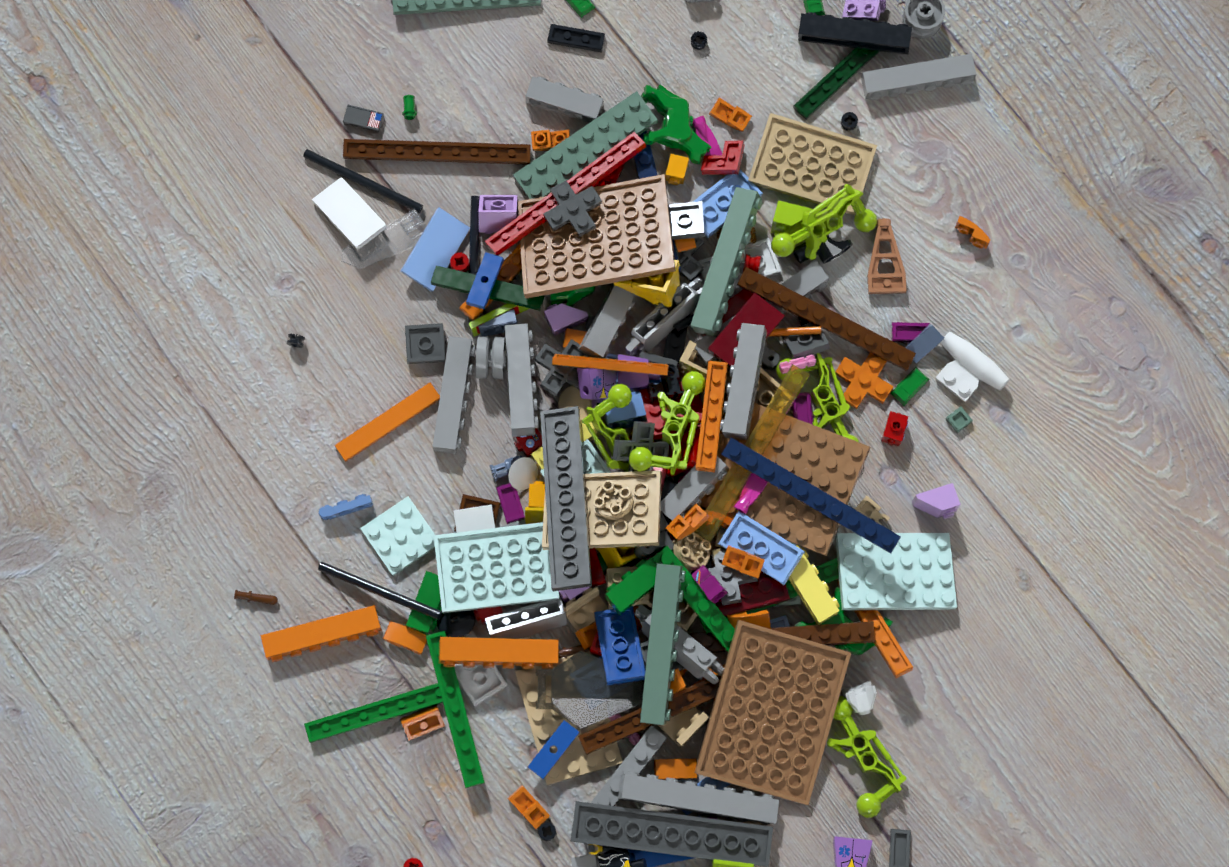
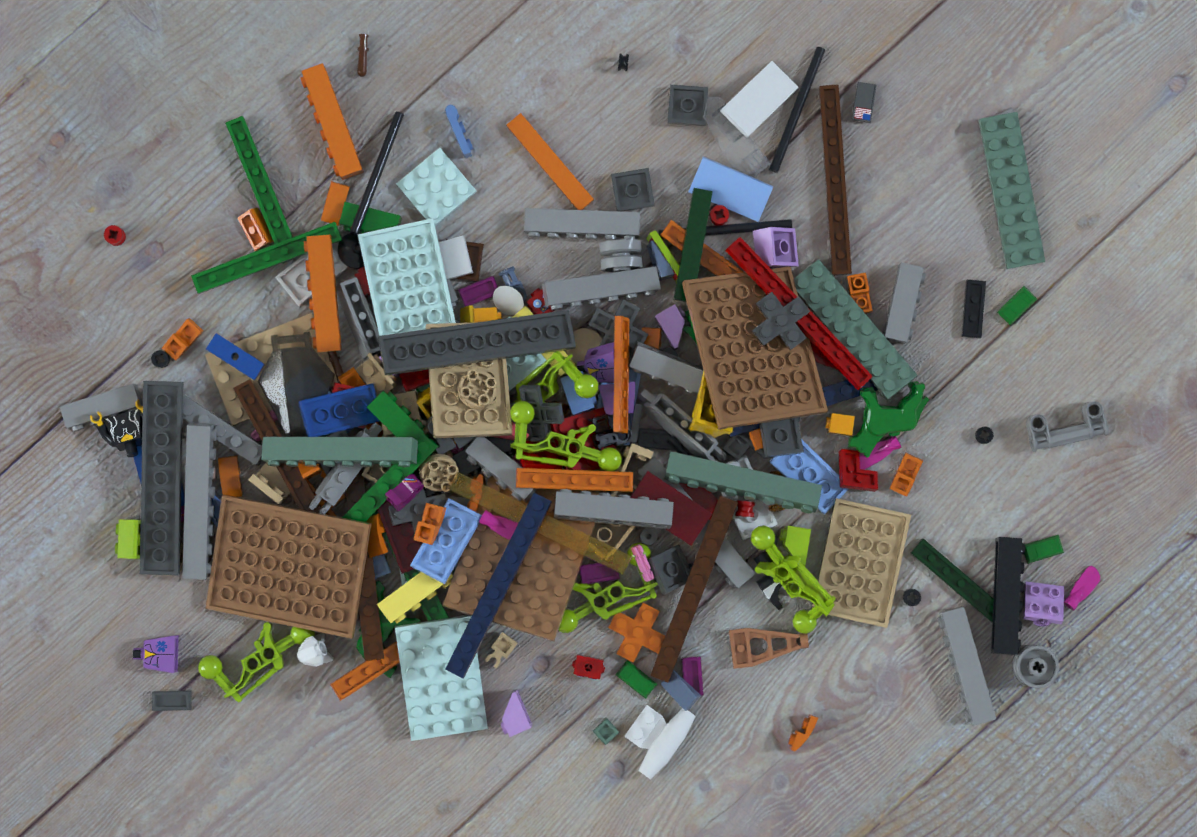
camera: 90 degrees right, 10 degrees up
(346, 283) = (687, 105): none -> dark grey plate
(409, 107) = (879, 147): green pin -> none
(488, 272) = (709, 243): blue tile -> none
(692, 520) = (461, 463): orange slope -> none
(796, 331) = (679, 560): orange bar -> none

